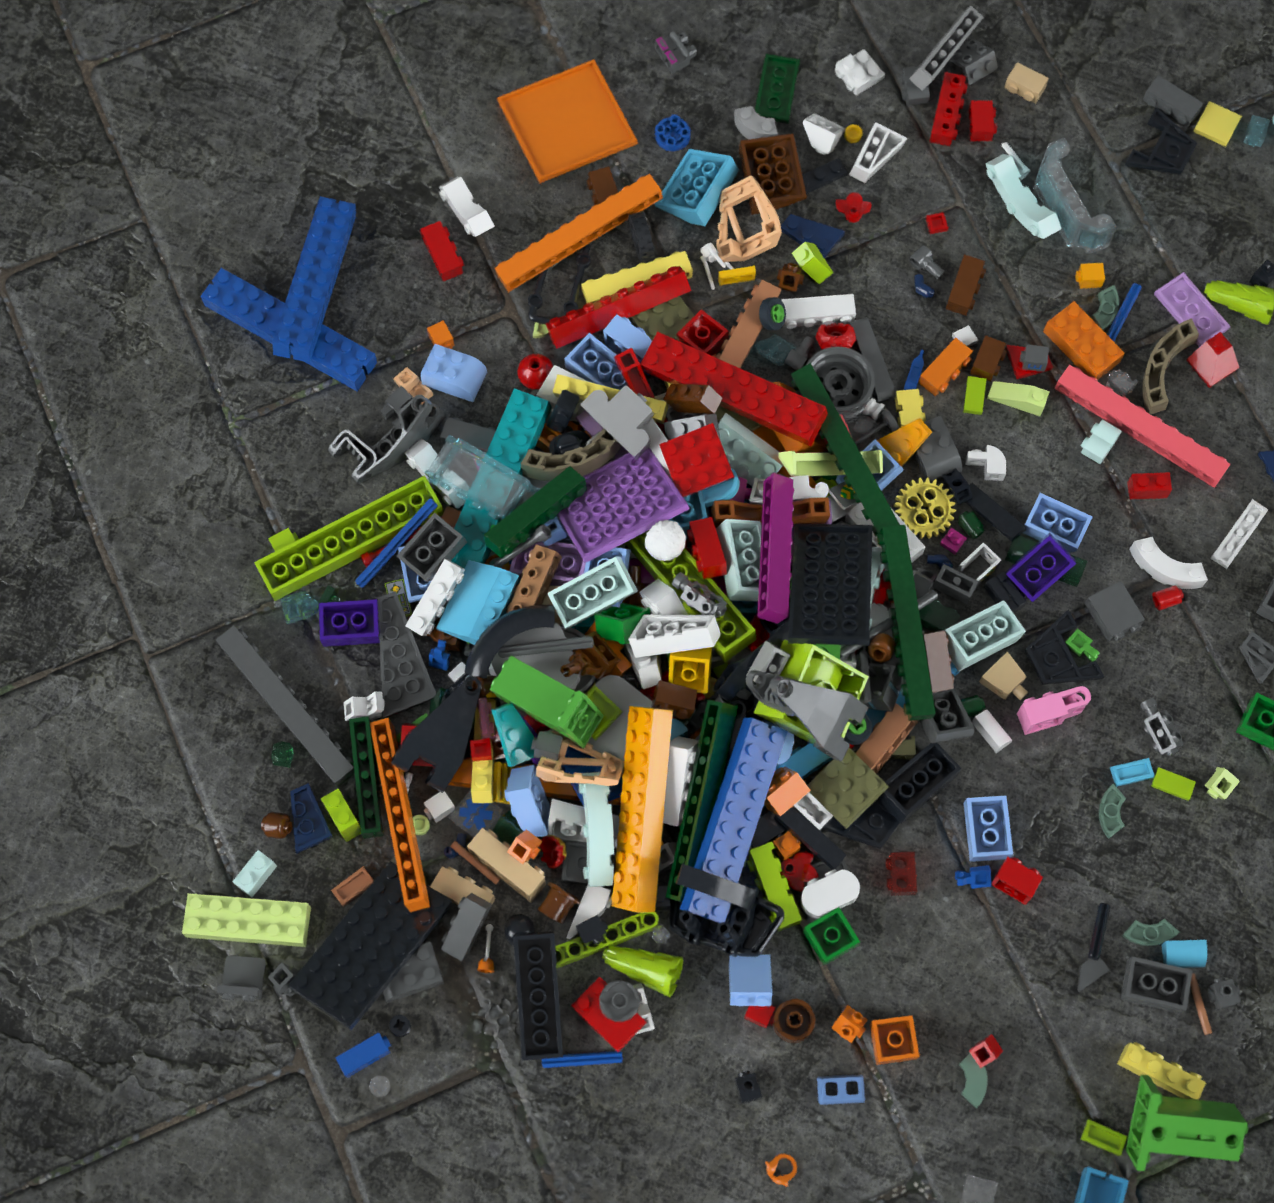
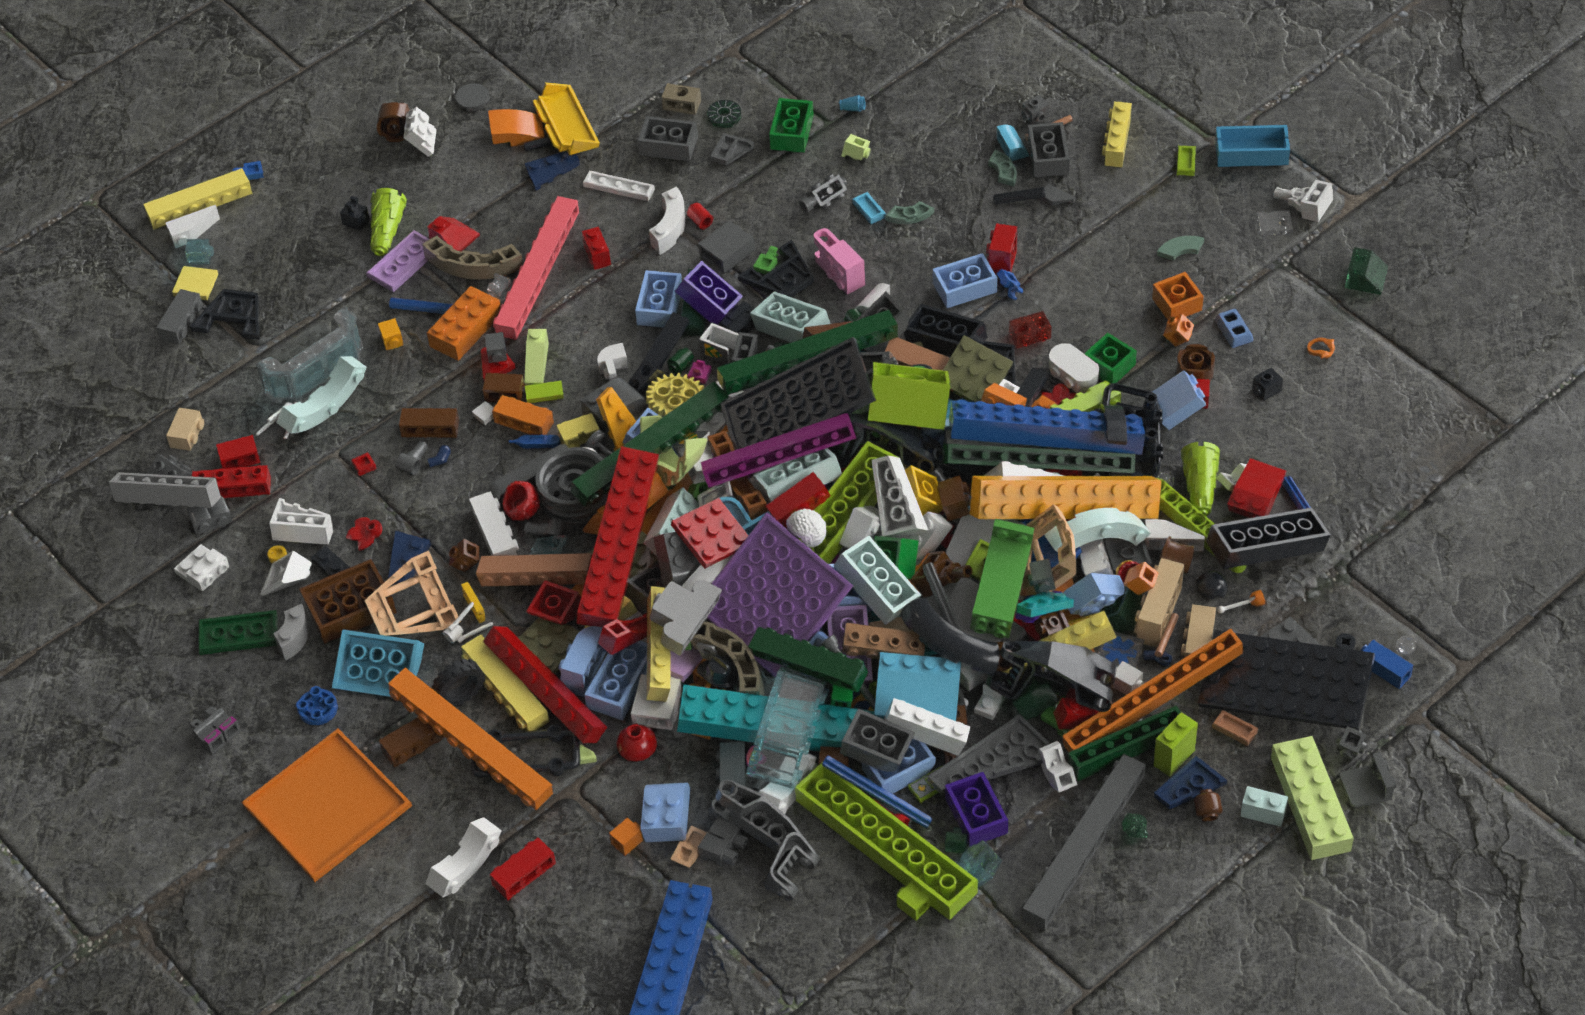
camera: 105 degrees left, 20 degrees down
(314, 279) = (601, 960): blue piece -> none
(438, 657) = (979, 723): blue plate -> none
(466, 926) = (1231, 613): dark grey brick -> none
(481, 750) = (1067, 632): red tile -> none
(484, 710) = (1042, 632): clear pink wing -> none
(563, 411) = (685, 672): black brick -> none
(592, 931) = (1191, 515): black brick -> none
(619, 1001) = (1243, 477): dark grey tile -> none
(692, 398) = (642, 563): reddish brown brick -> none
(694, 598) = (853, 485): dark grey brick -> none
(769, 660) = (899, 419): light grey brick -> none
(772, 313) = (515, 547): black wheel -> none
(812, 262) = (440, 542): lime slope -> none
(818, 708) = (928, 377): dark grey piece -> none
(986, 1051) = (1156, 238): red brick -> none
(1005, 678) = (824, 298): tan torso -> none
(1101, 441) = (563, 290): light aqua brick -> none
(1107, 307) = (418, 319): sand green tile -> none
(1173, 784) = (868, 180): lime tile -> none
(1182, 1127) = (1160, 104): bright green brick -> none

